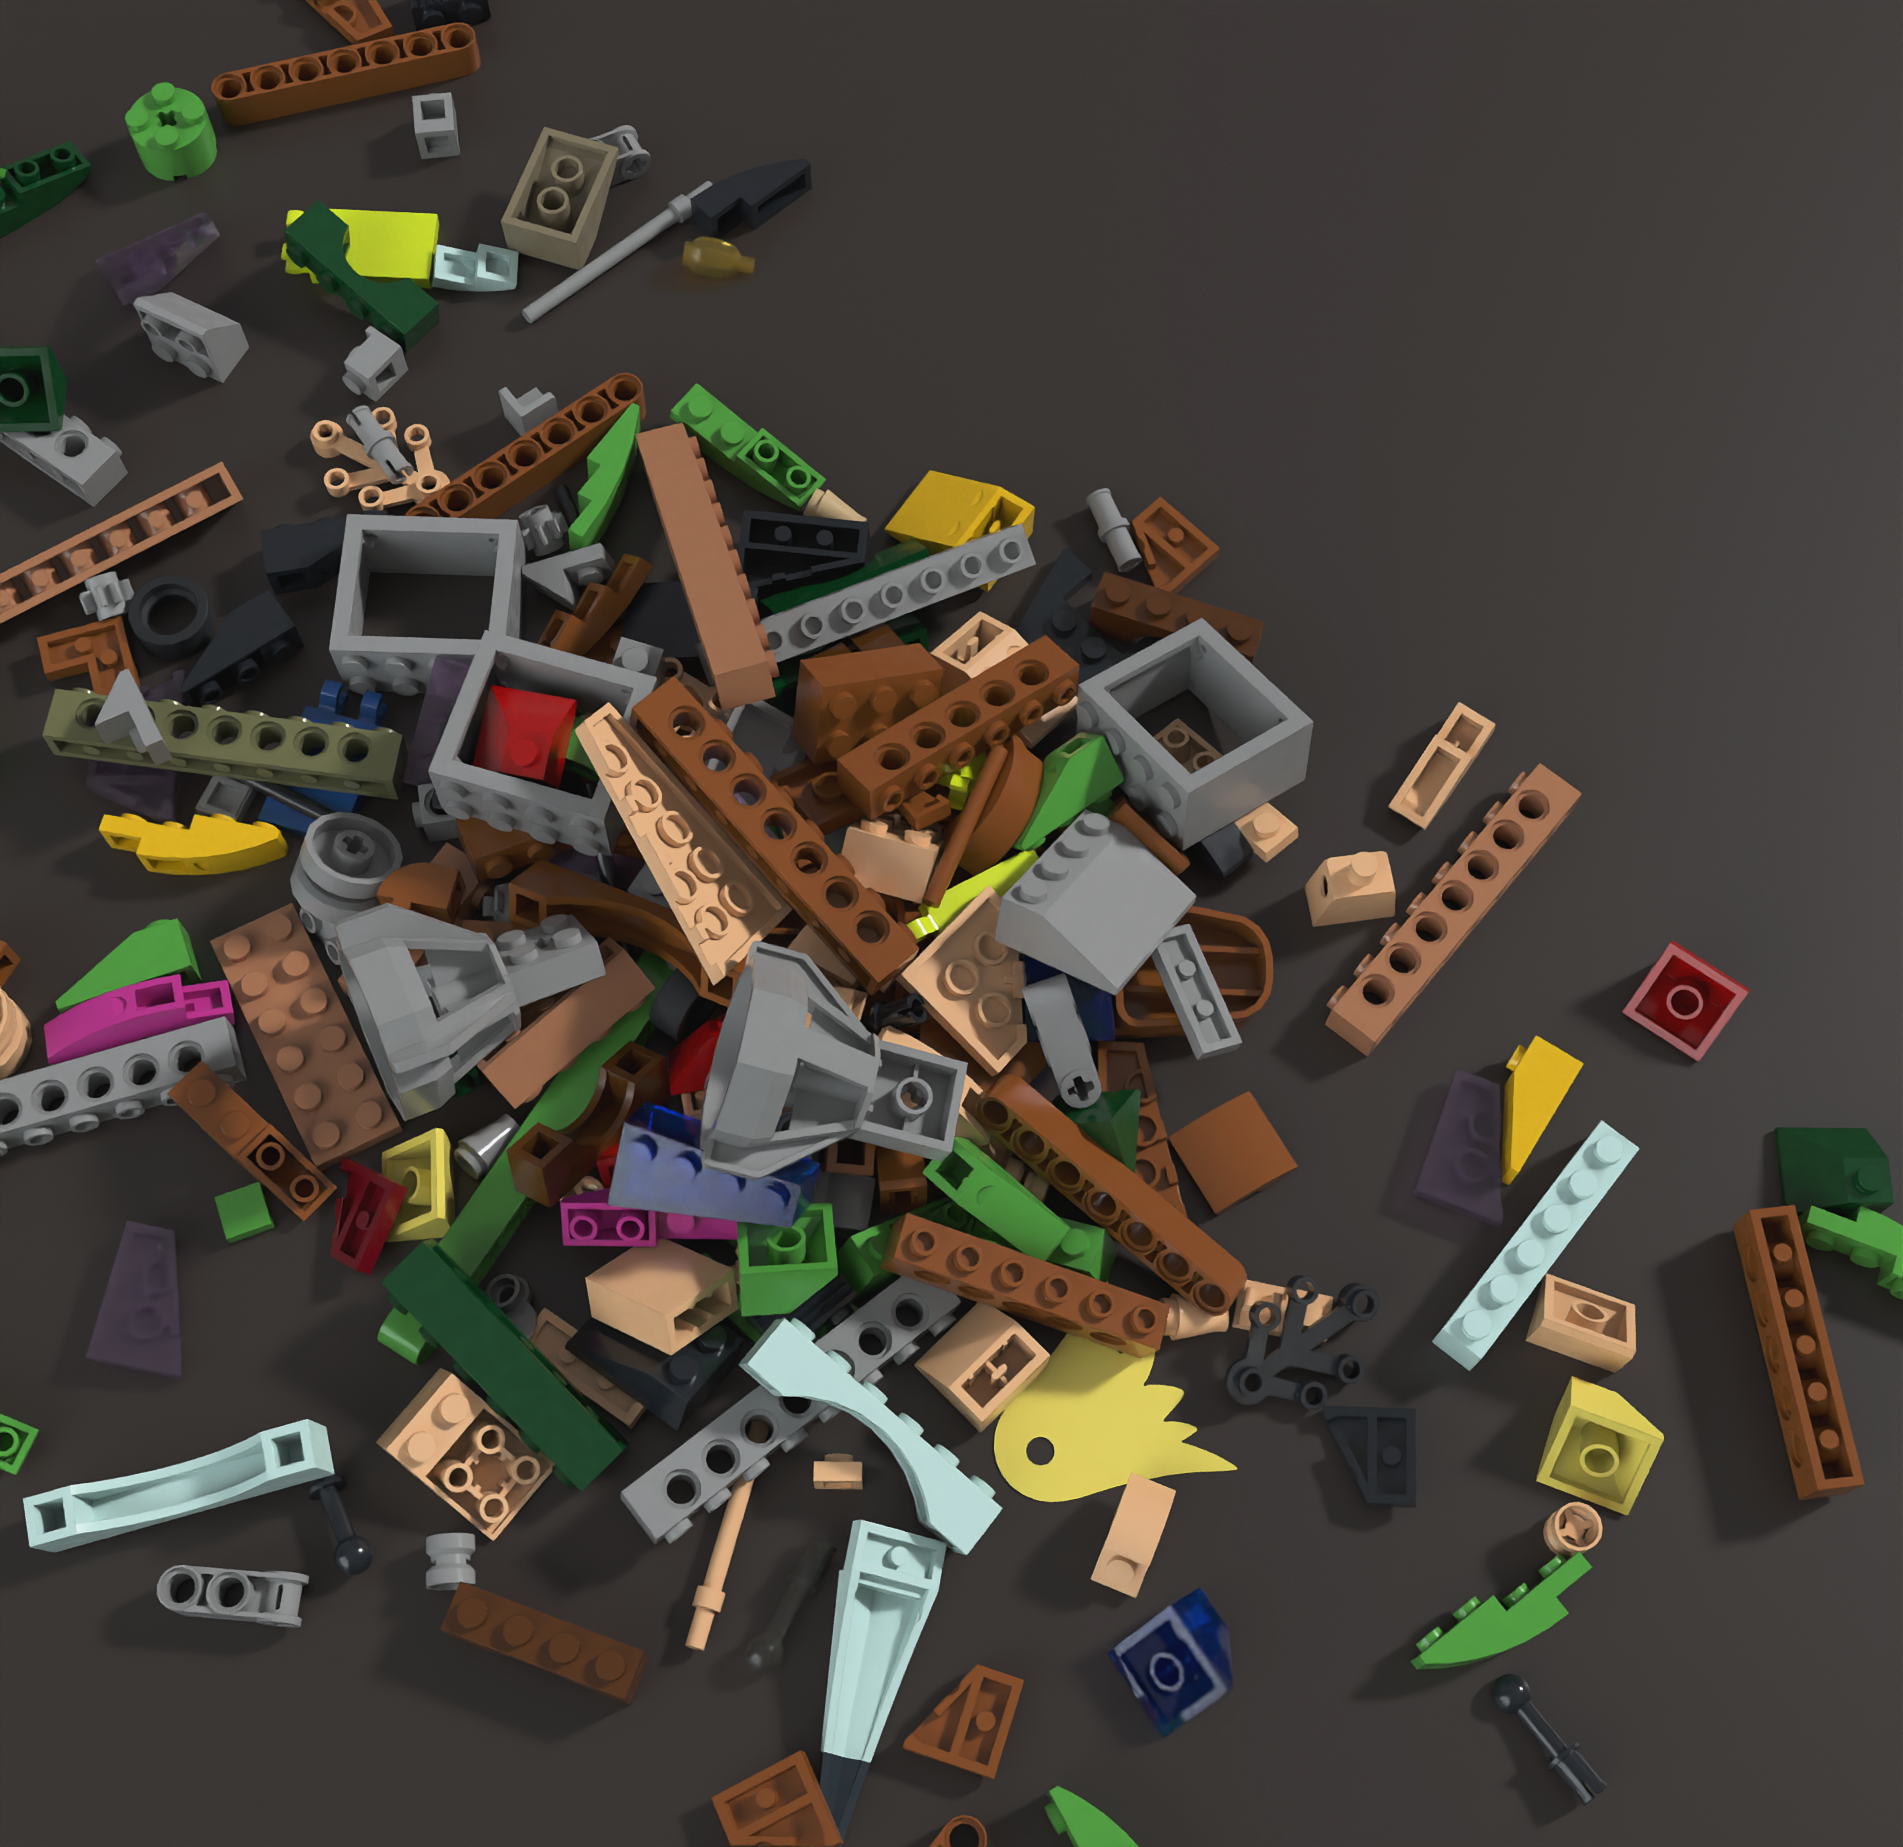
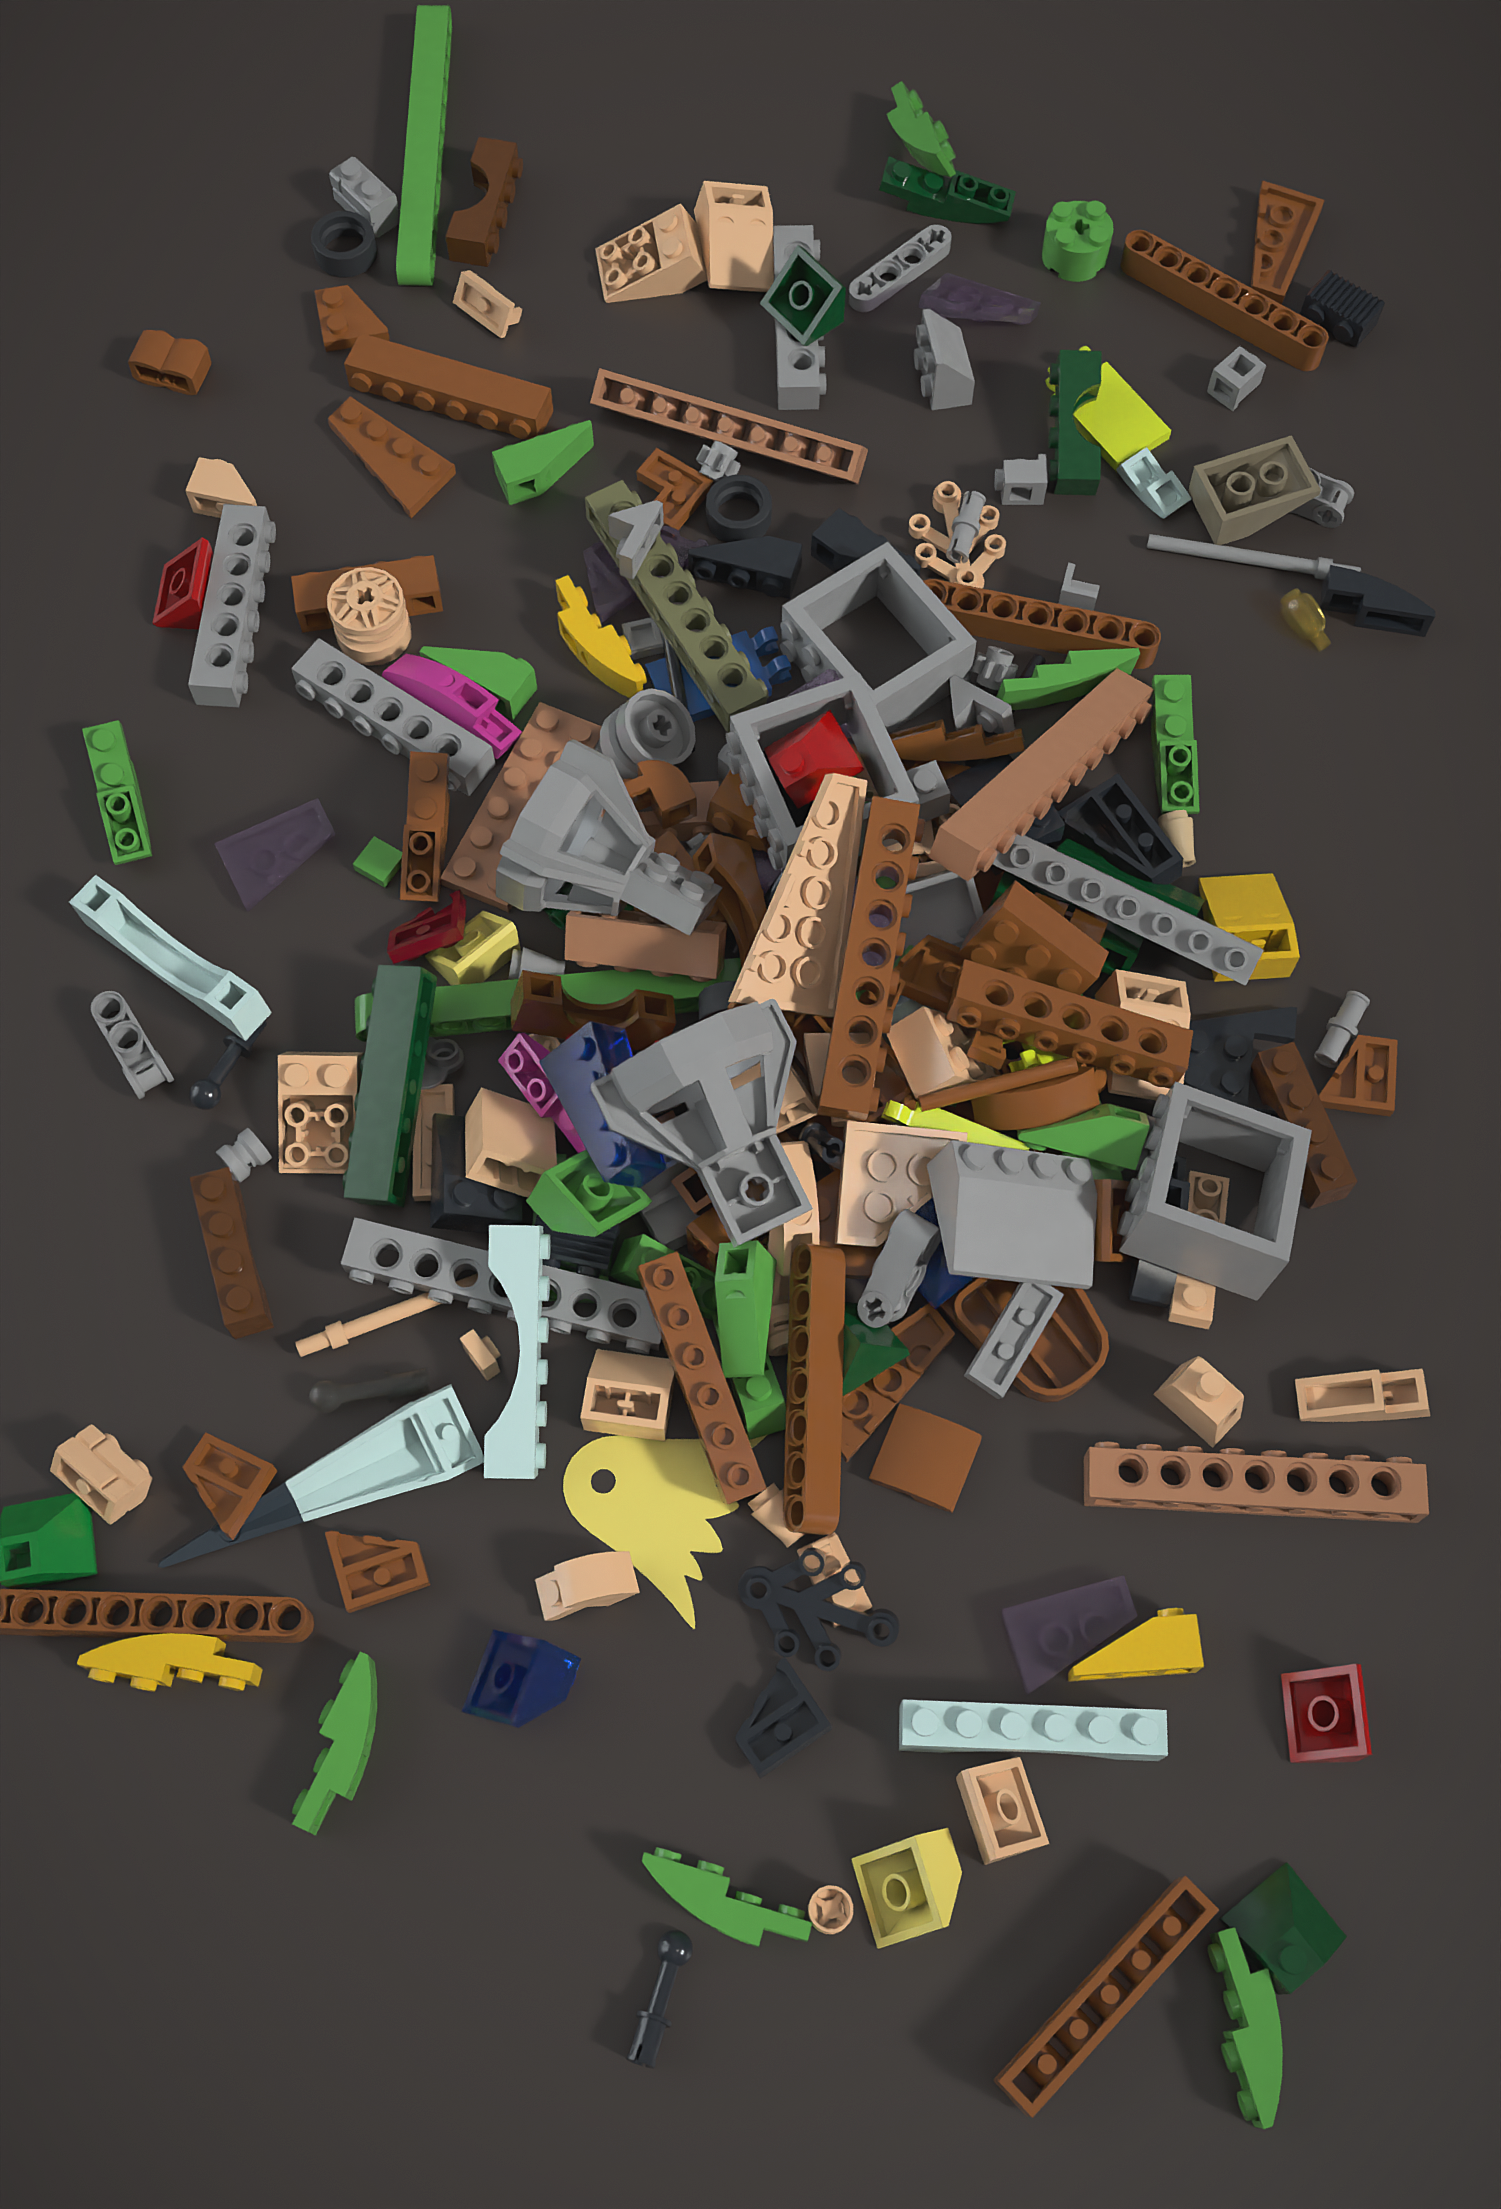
camera: 55 degrees right, 0 degrees up
(55, 293) = (904, 271): none -> light grey beam

